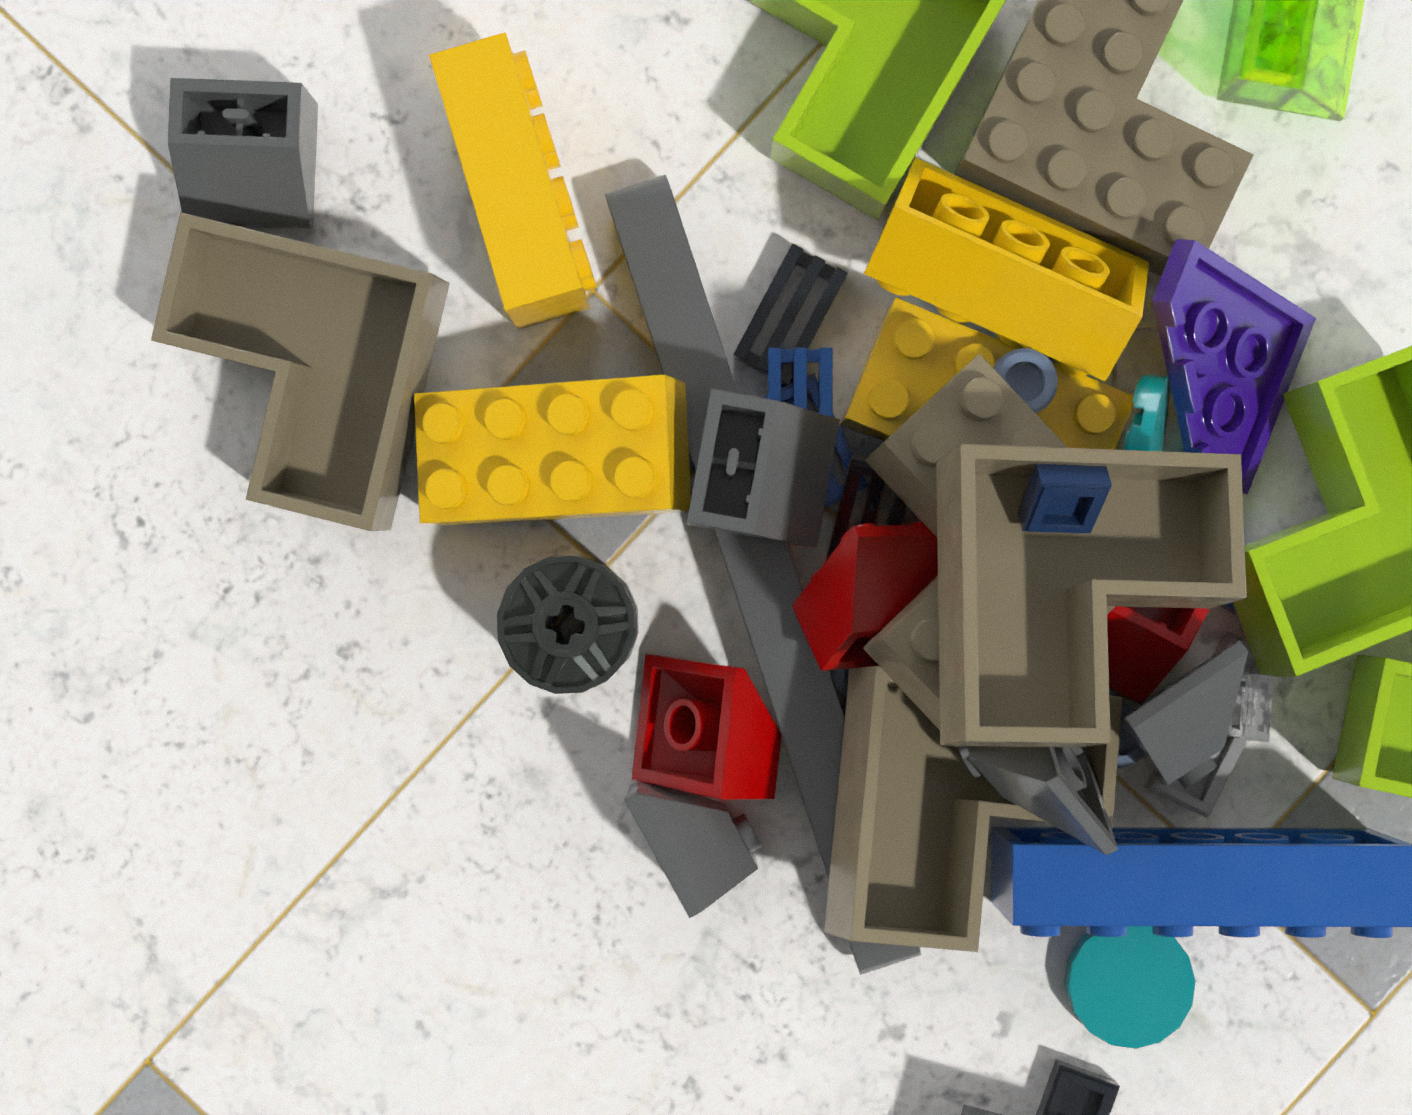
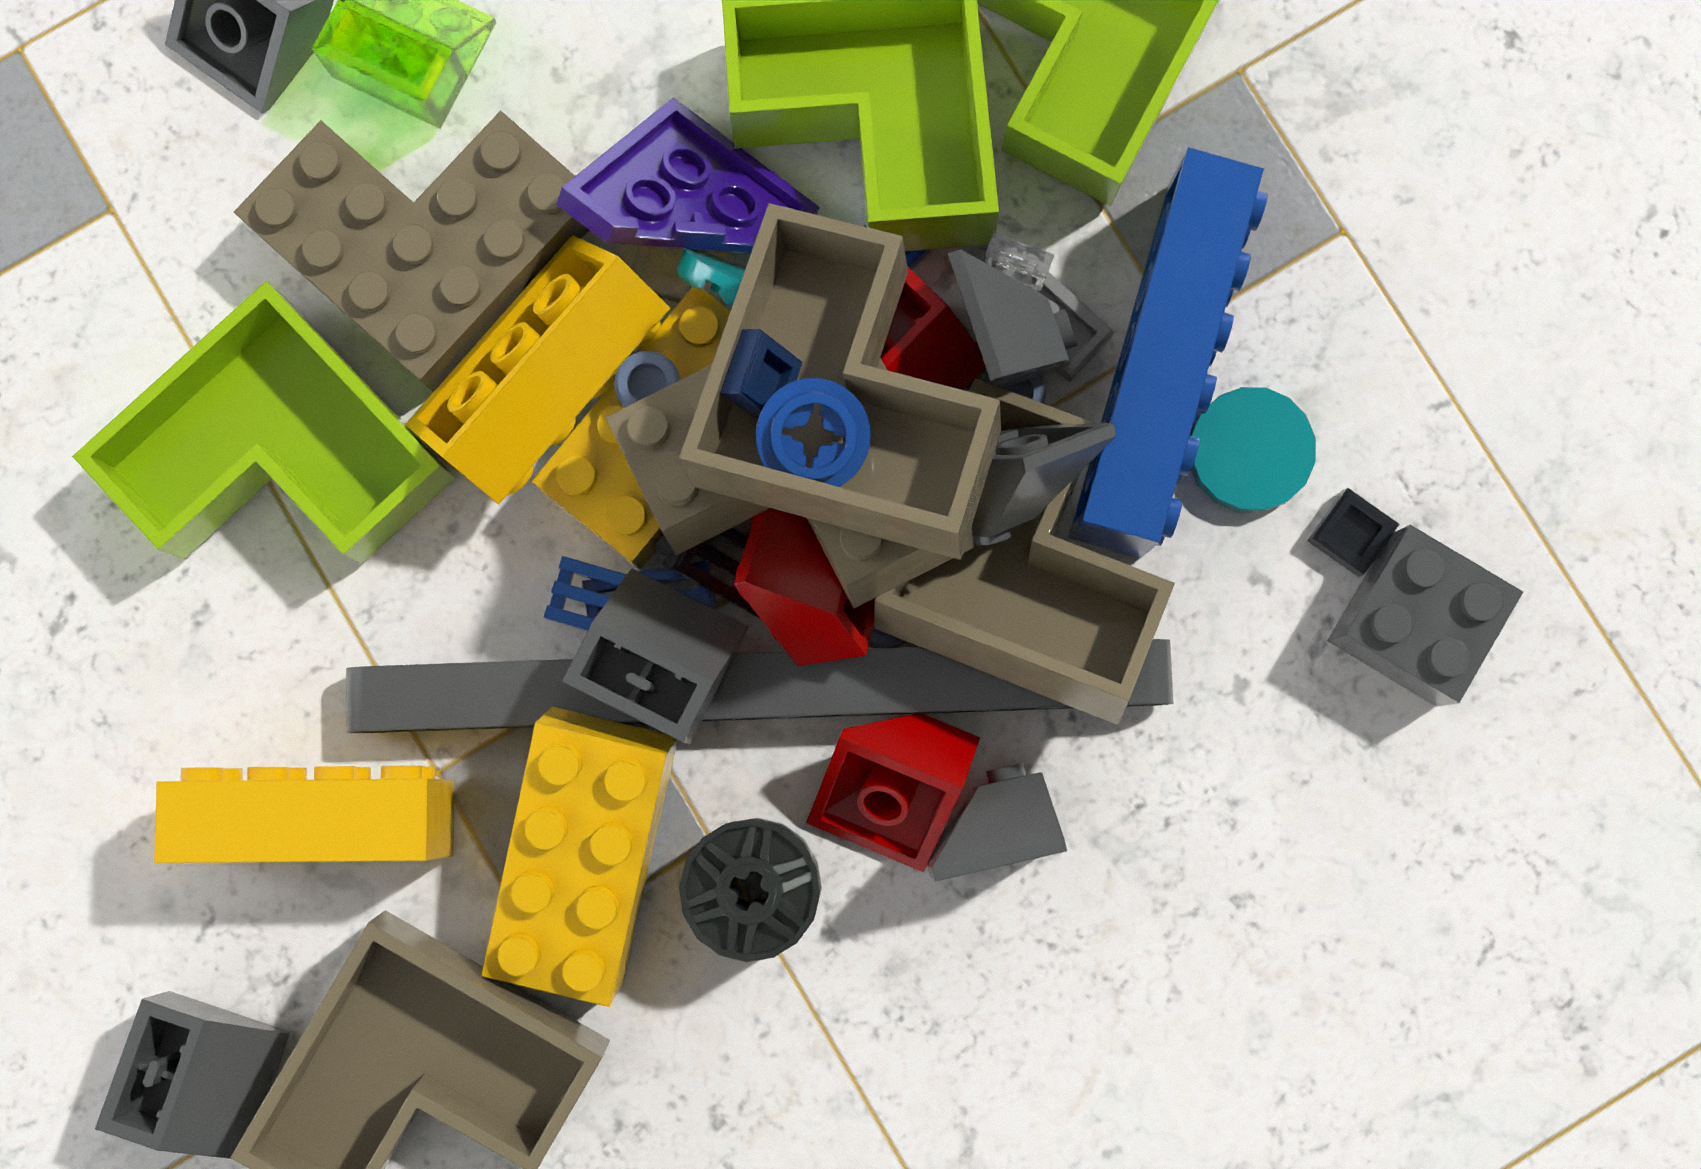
camera: 70 degrees left, 5 degrees down
(814, 267) = (482, 551): black tile -> none
(1049, 587) = (840, 414): none -> blue gear

